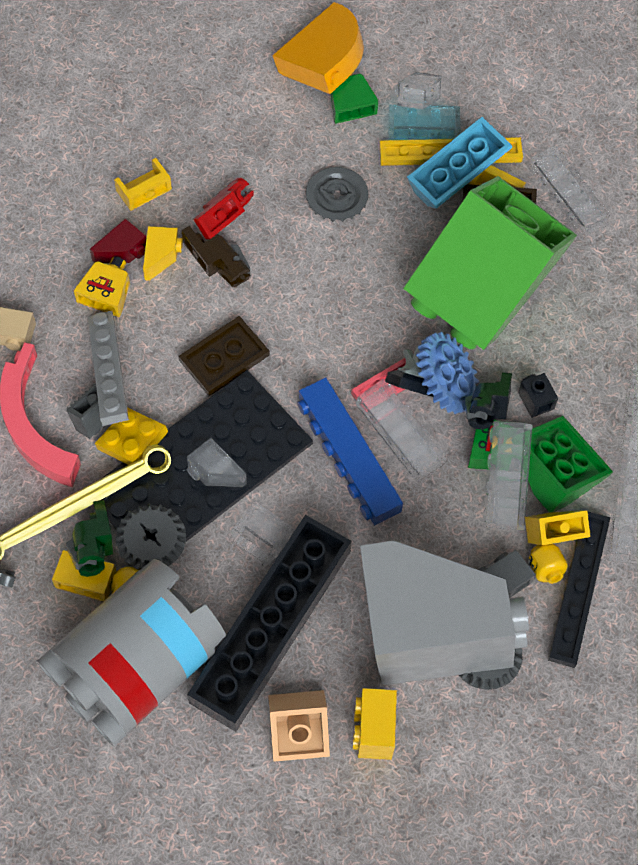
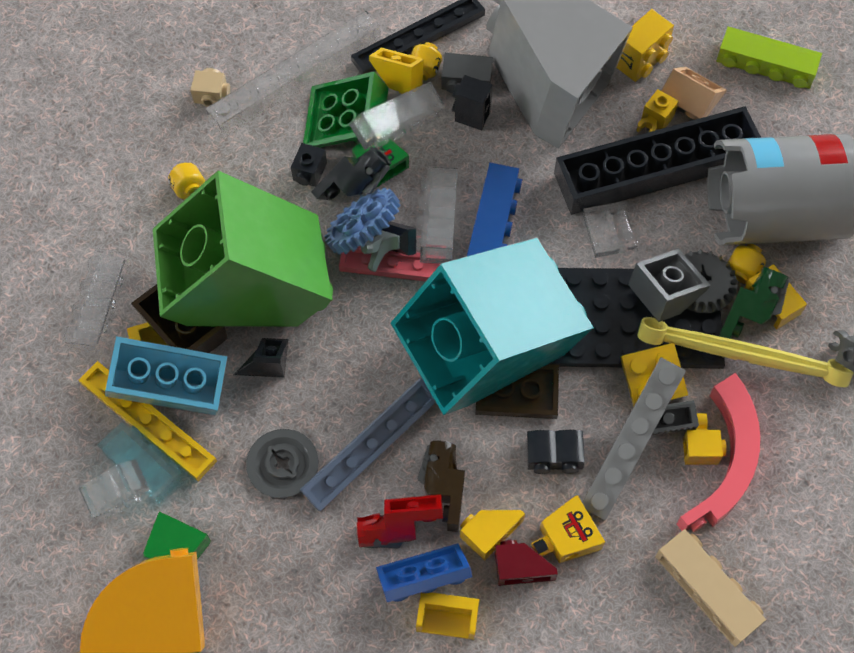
camera: 135 degrees left, 0 degrees up
(53, 416) = (703, 445): none -> yellow brick
(159, 333) = (555, 450): none -> black brick
(171, 498) = (667, 284): none -> dark grey slope
(179, 189) = (423, 573): none -> blue plate
(214, 466) = (610, 291): clear slope -> none
(260, 820) = (769, 57): none -> lime brick
(269, 357) = (489, 322): none -> teal slope
(290, 245) = (368, 445): none -> sand blue plate
(310, 670) = (658, 112): none -> yellow brick
(414, 241) = (267, 360): none -> black slope
(467, 542) = (472, 102): none -> black brick
(611, 316) = (185, 179): none -> yellow head

